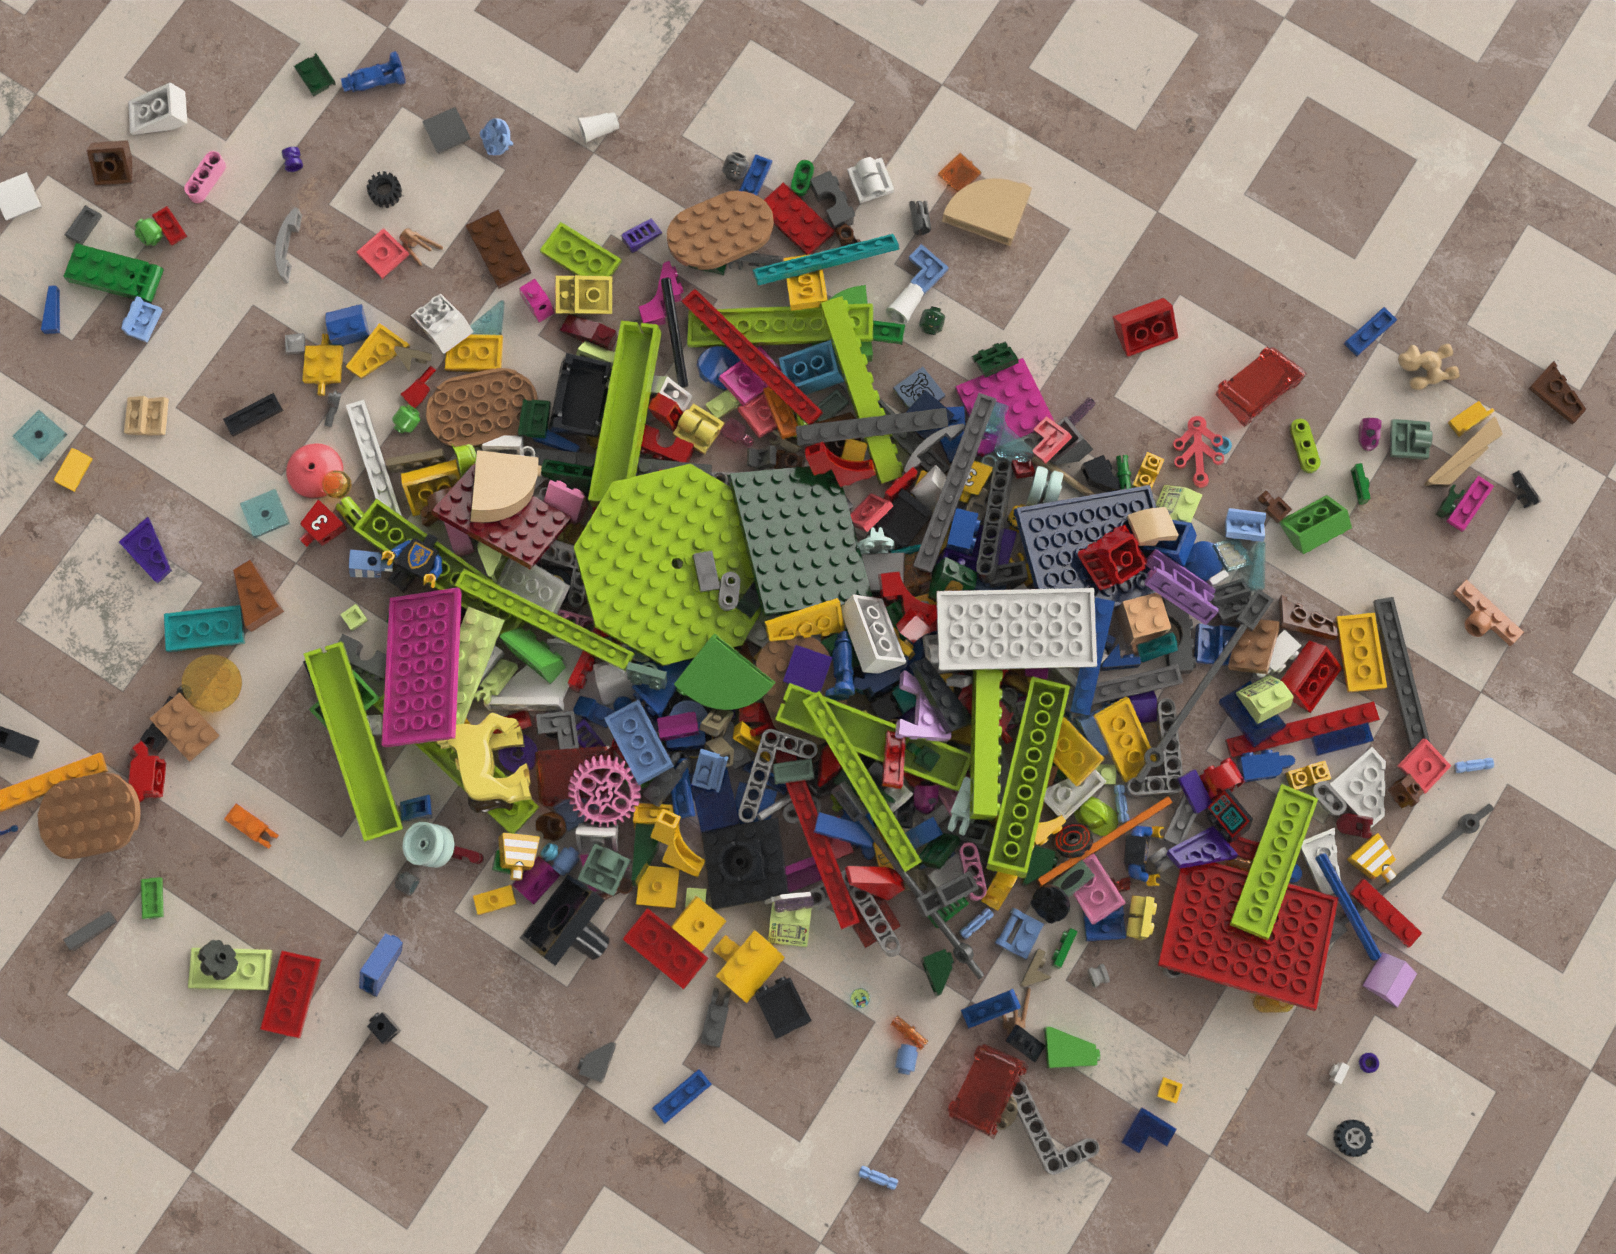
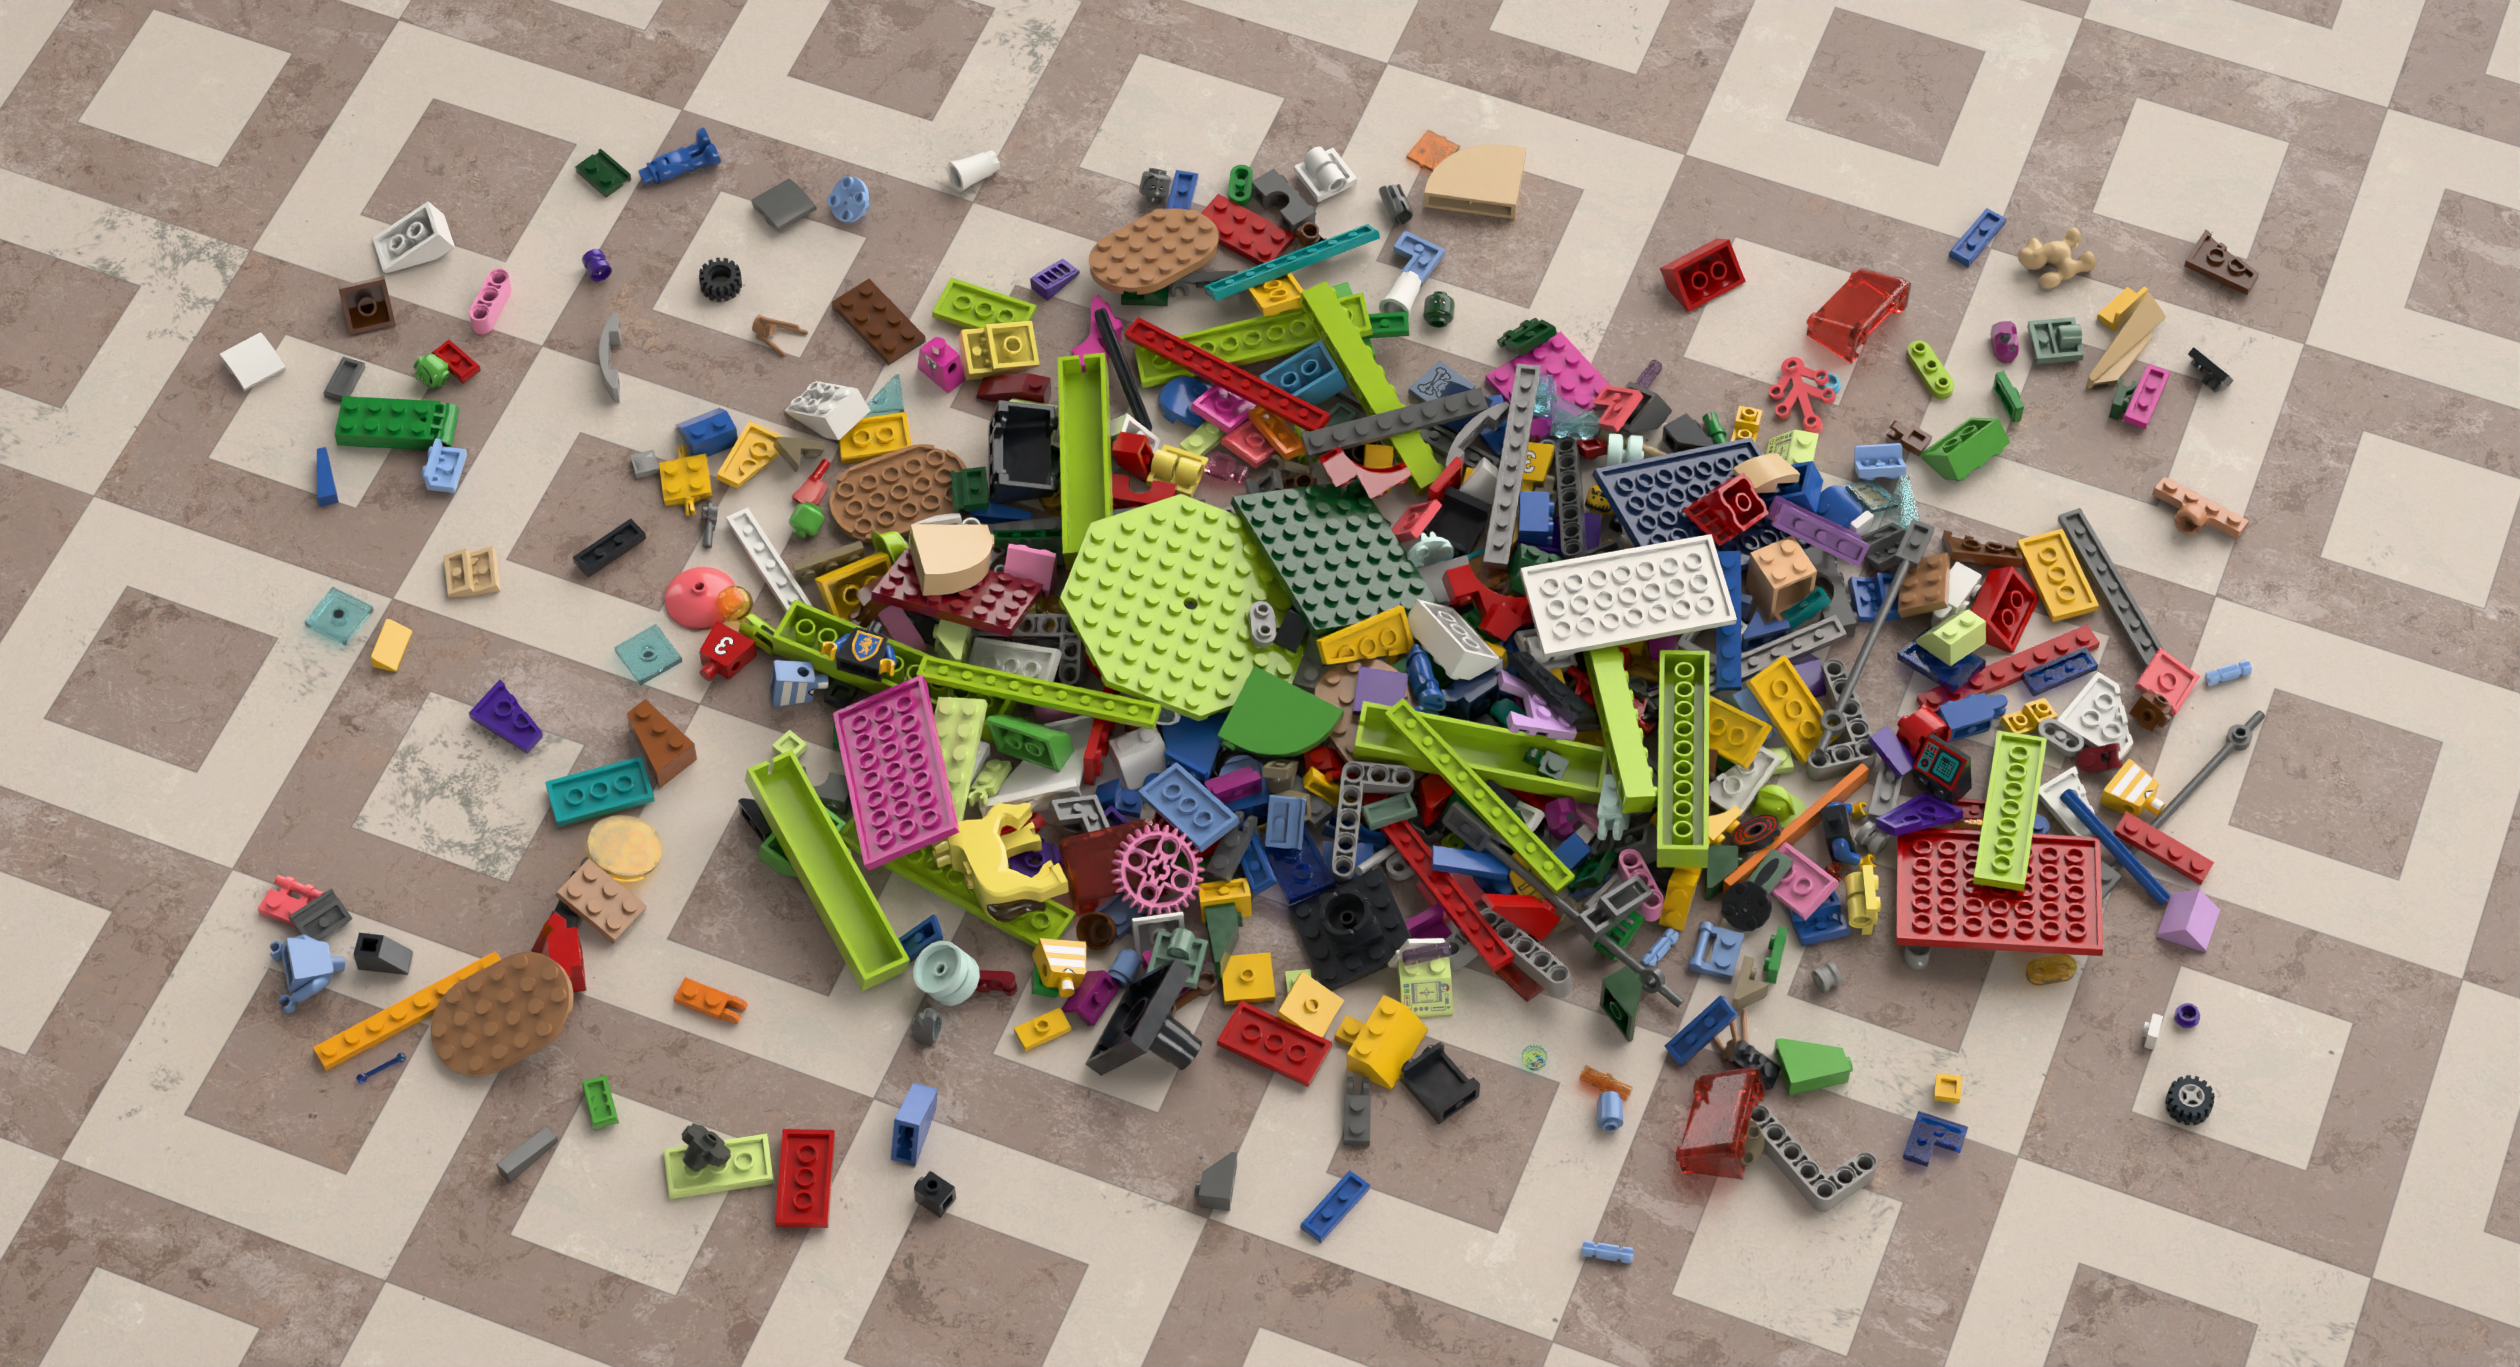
camera: 10 degrees left, 20 degrees down
(382, 253) = (734, 348): coral plate -> none
(549, 852) = (1101, 961): medium azure plate -> none
(646, 674) = (1182, 730): sand green plate -> none
(677, 853) = (1263, 932): yellow arch -> none
(706, 571) = (1229, 605): flat silver tile -> none
(893, 761) = (1512, 767): red tile -> none
(960, 680) = (1572, 672): light grey tile -> none
(1121, 803) = (1805, 785): light blue axle -> none

